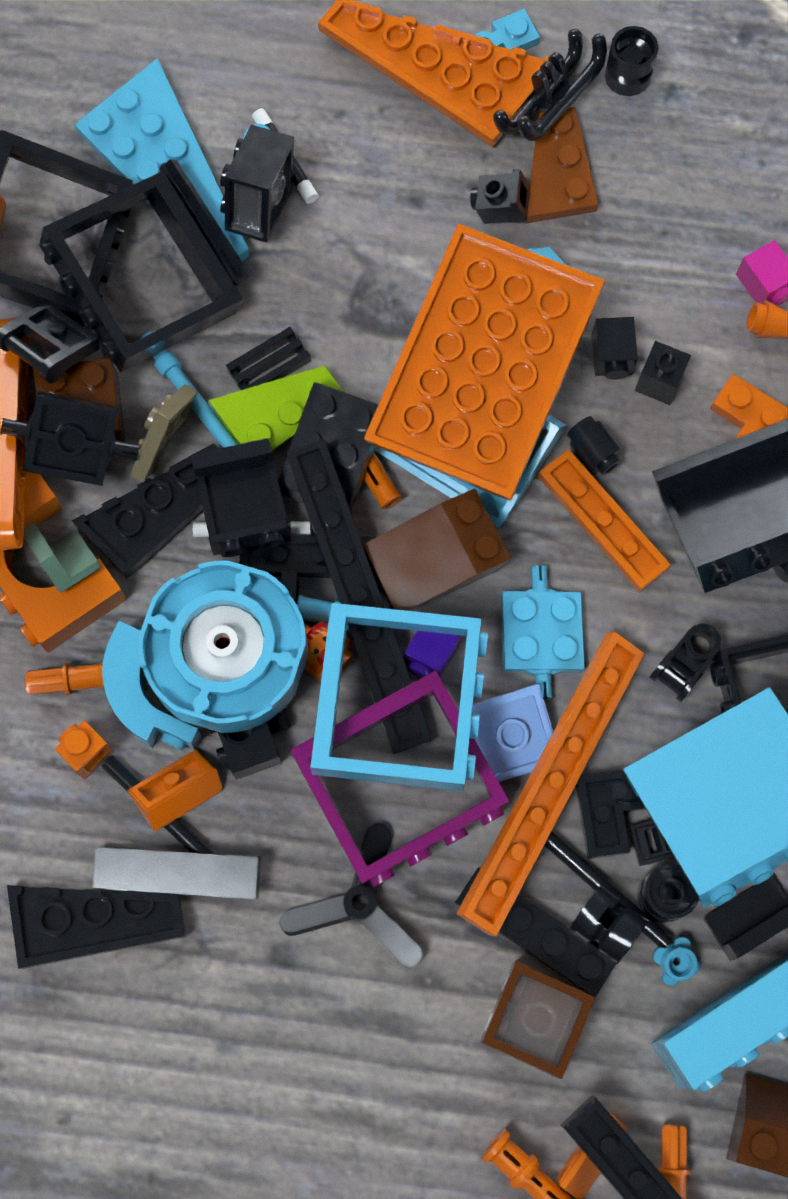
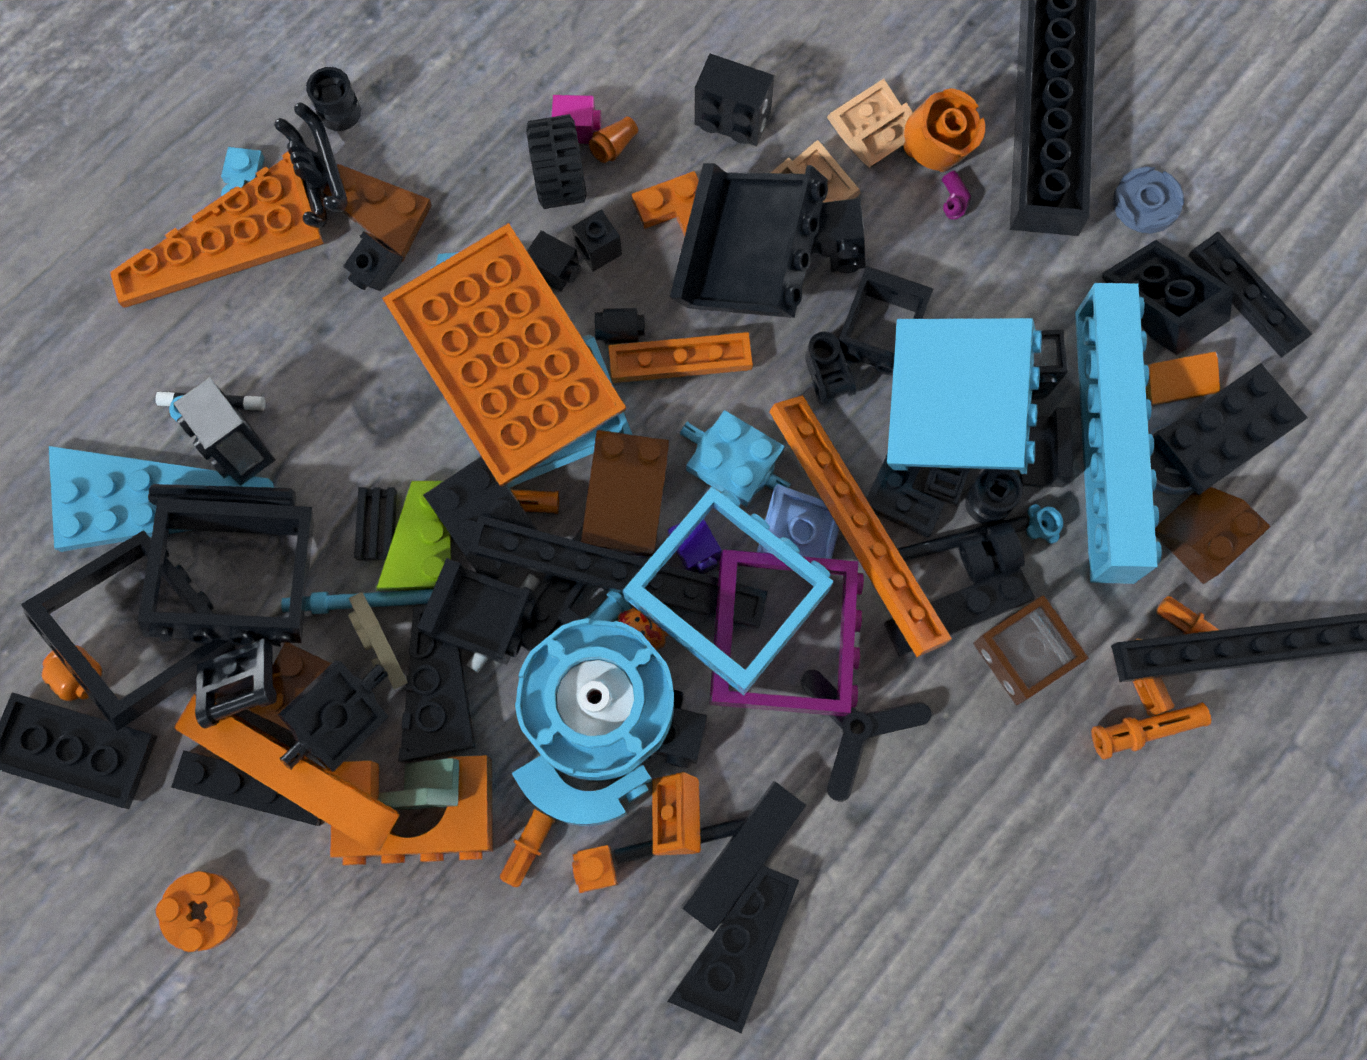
camera: 55 degrees left, 0 degrees up
(708, 285) = (556, 161): none -> black tyre

